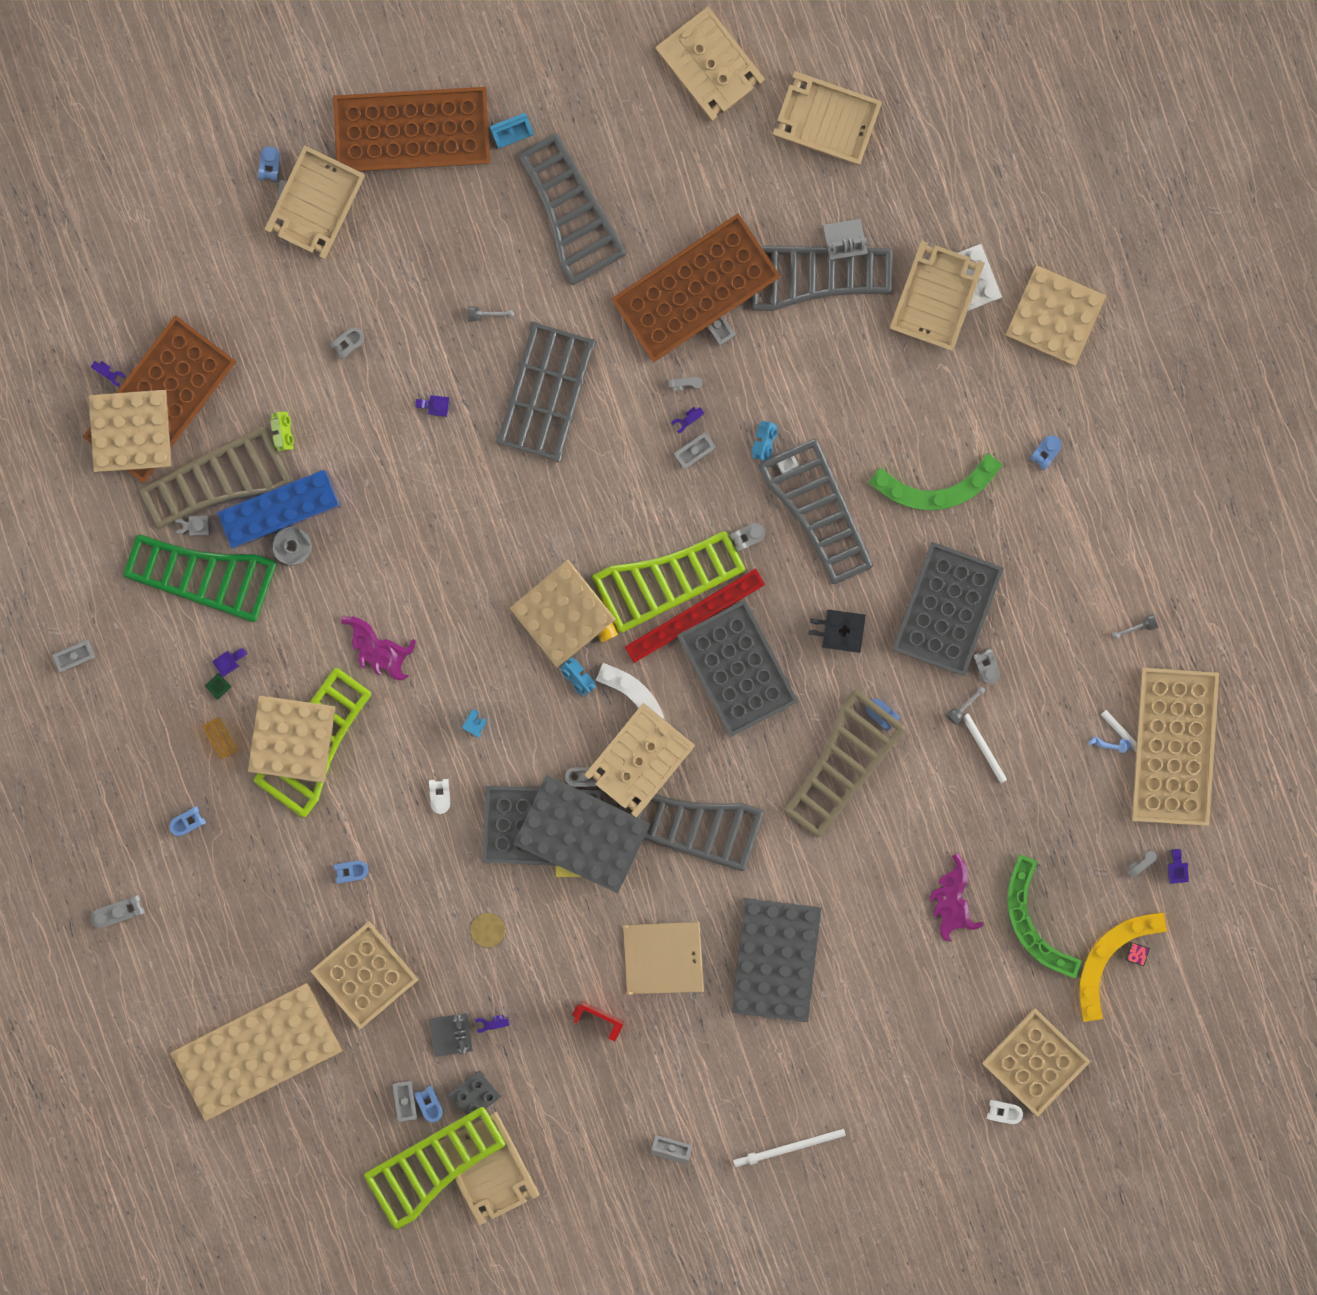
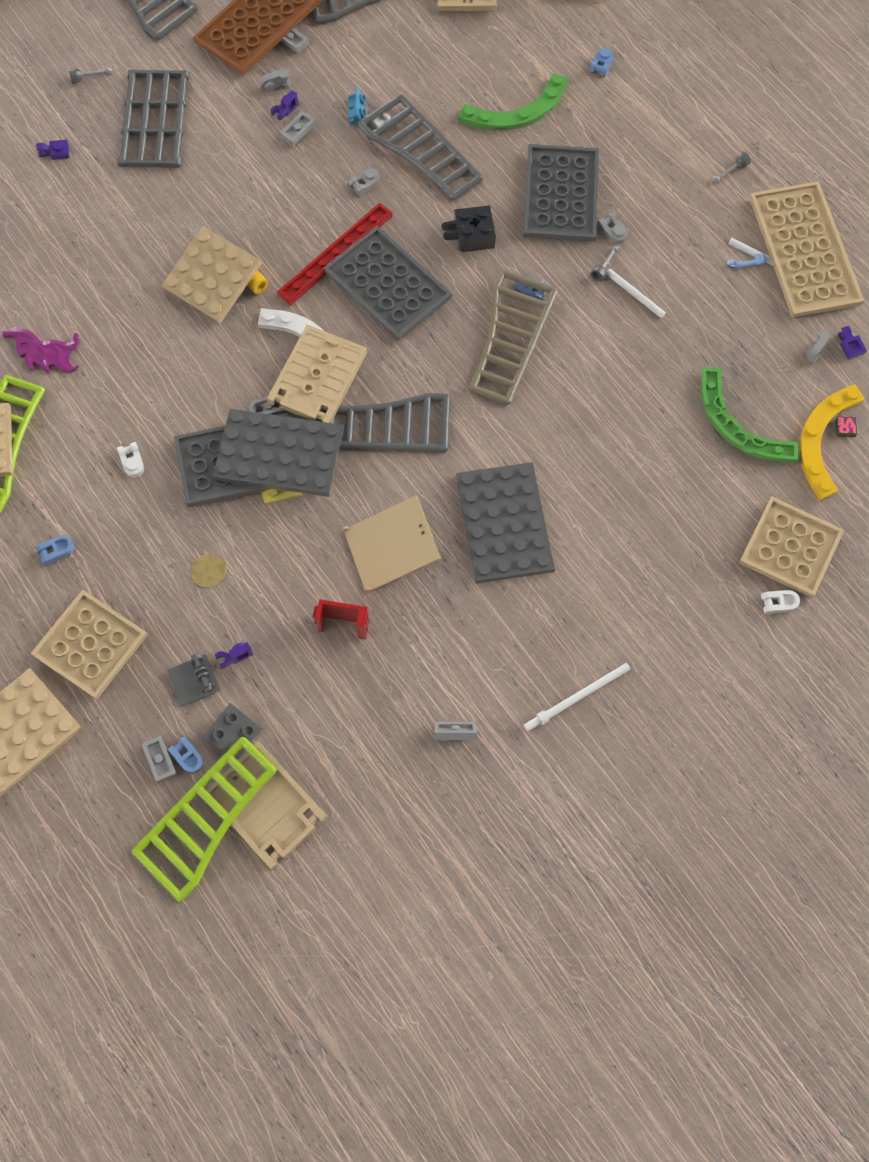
camera: 20 degrees left, 20 degrees down
(473, 726) = (146, 383): dark azure hinge -> none
(571, 671) = (236, 325): dark azure hinge -> none
(653, 564) = (302, 214): lime bar -> none
(950, 901) = (654, 428): magenta piece -> none

